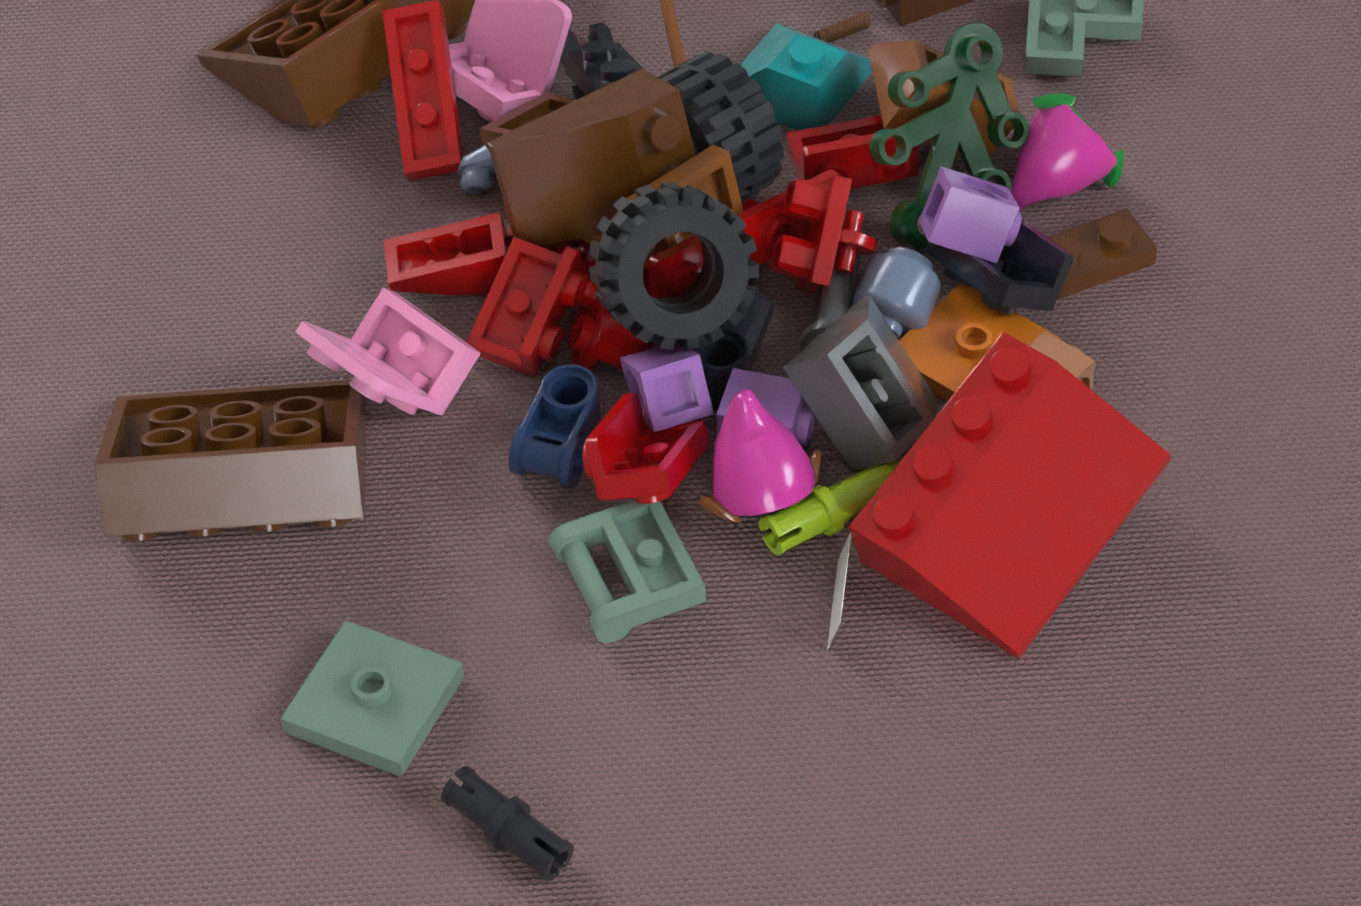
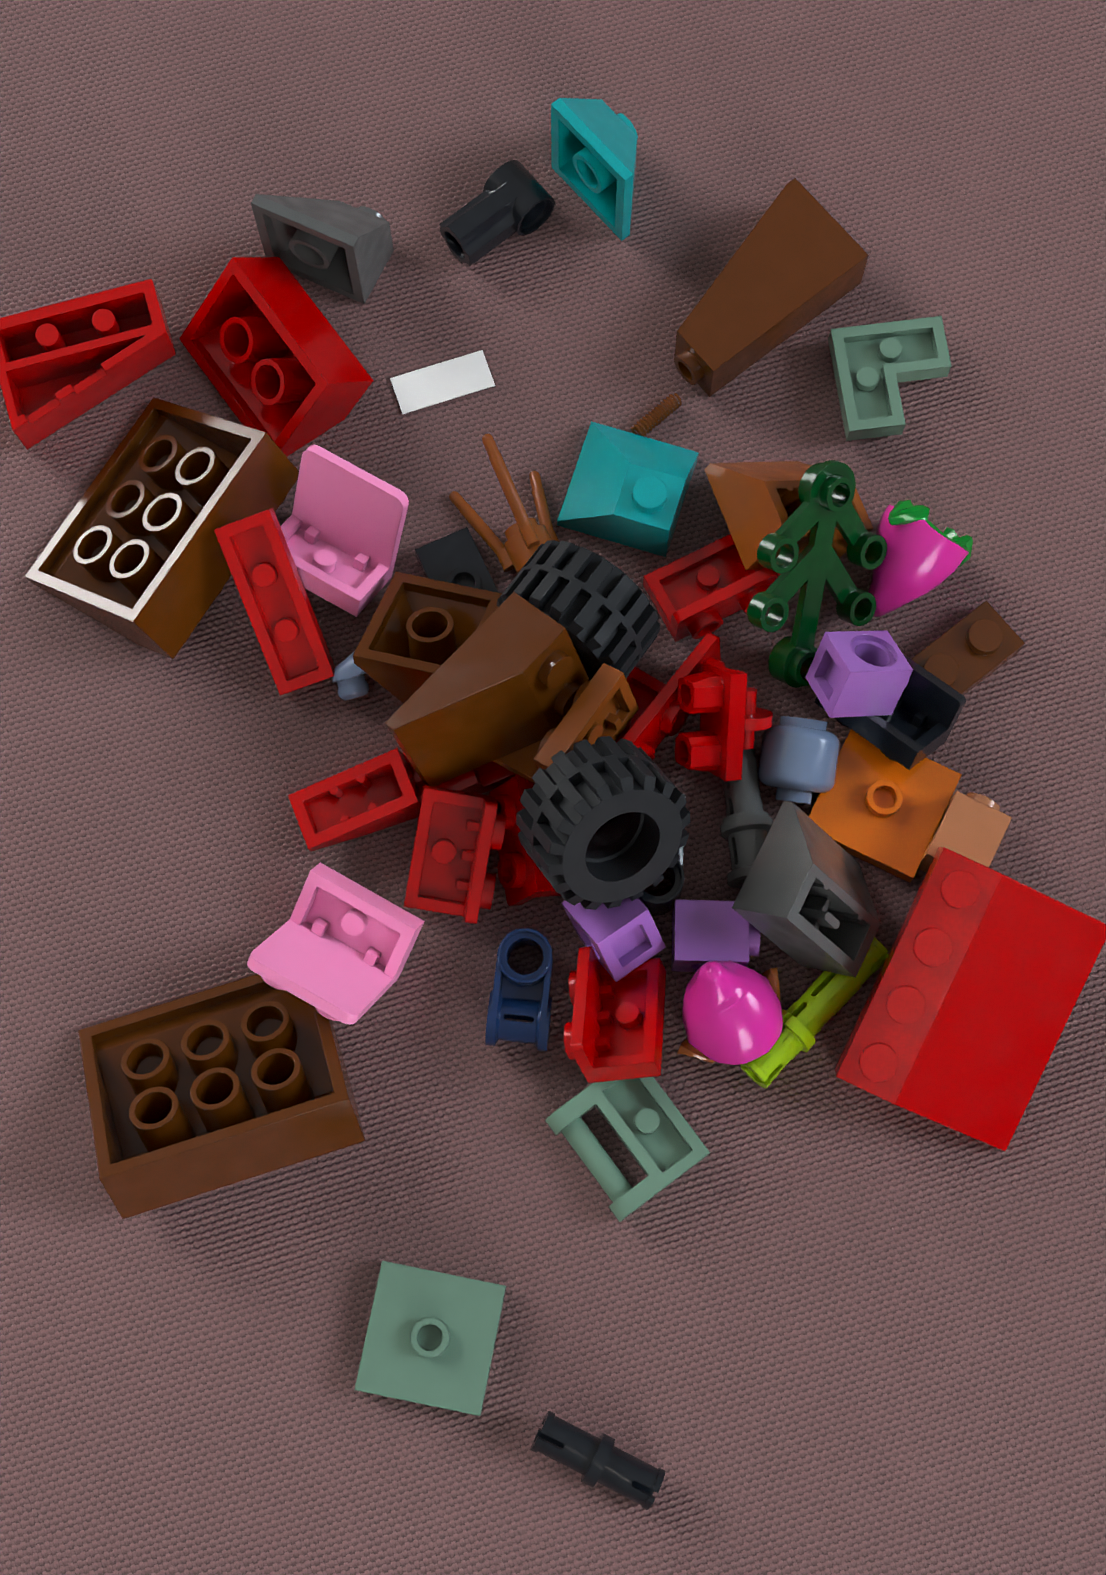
camera: 15 degrees left, 25 degrees up
(598, 61) = (452, 536): black hinge -> none
(839, 589) = (830, 1122): white sticker -> none

